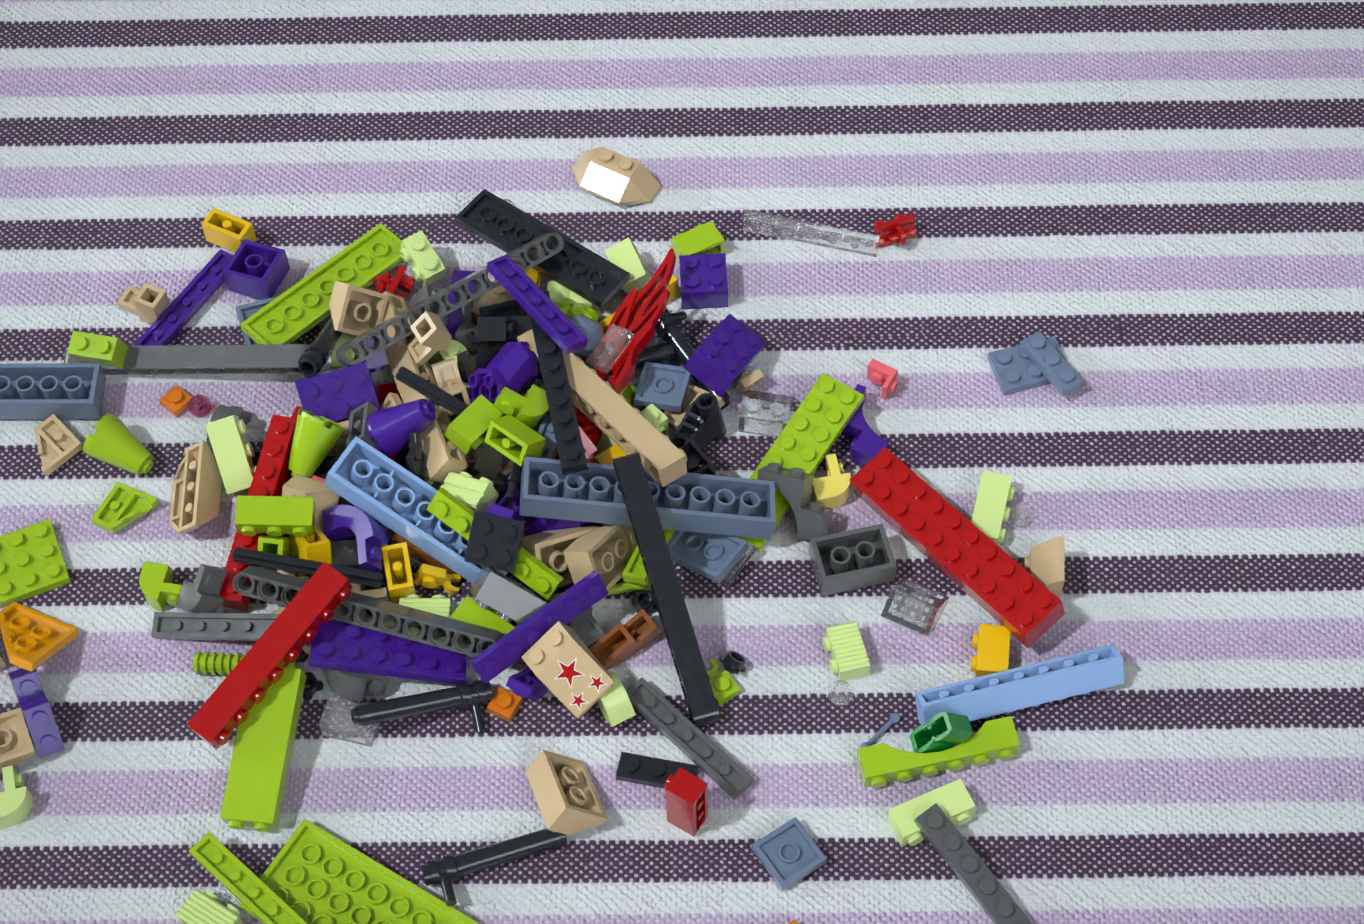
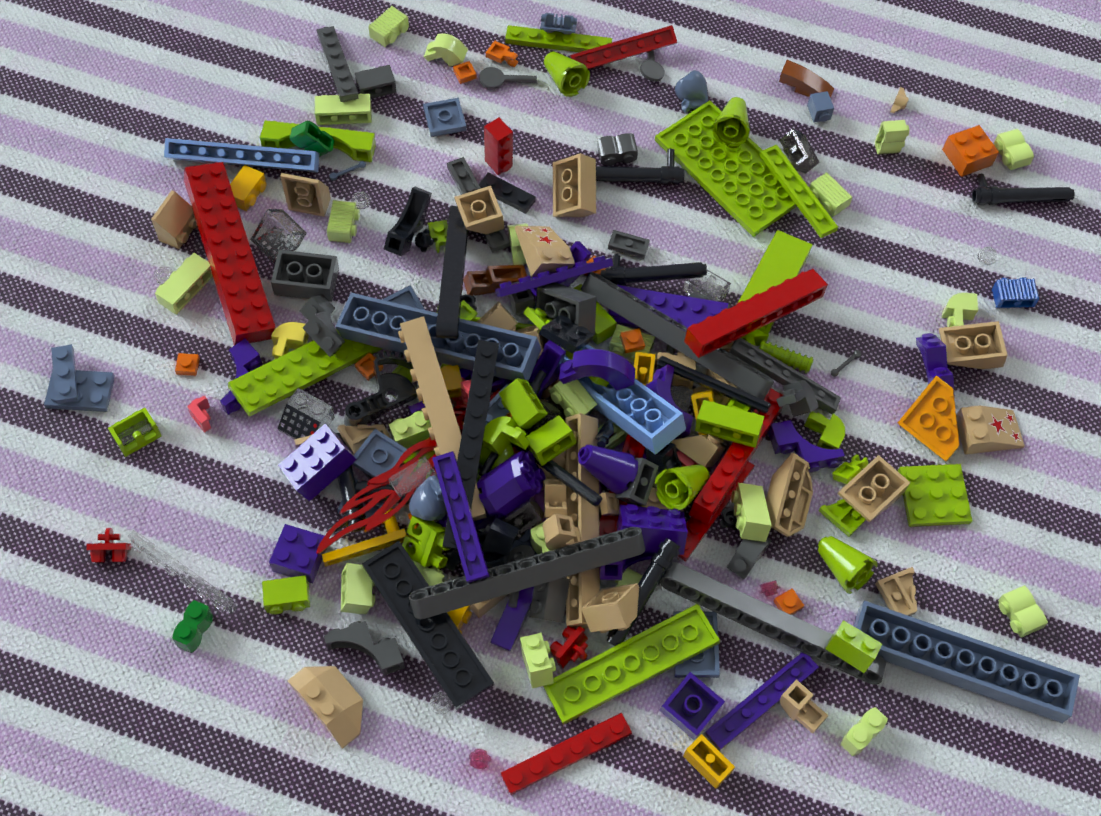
camera: 165 degrees left, 5 degrees up
(78, 304) = (864, 731): none -> yellowish green brick
(97, 526) = (874, 489): none -> tan slope
(129, 551) = (848, 471): none -> lime plate
(140, 705) = (856, 354): none -> dark grey hinge
(178, 554) = (786, 440): none -> dark purple arch
(369, 210) = (566, 753): none -> red plate
(422, 600) = (632, 340): none -> orange plate
(438, 496) = (599, 364): none -> dark purple arch
(450, 178) = (479, 759): none -> clear pink plate
(469, 749) = (628, 244): none -> dark grey plate
(529, 885) = (617, 149): none -> dark grey brick
(603, 231) = (358, 637): none -> dark grey arch
(672, 699) = (480, 211): none -> tan slope
(760, 665) = (412, 220): none -> black arch
(772, 190) = (195, 622): none -> green brick
(907, 655) = (305, 194): none -> tan slope
(910, 872) = (376, 81): none -> dark grey brick
(931, 429) = (187, 364): none -> orange plate
(941, 338) = (135, 432): none -> lime window

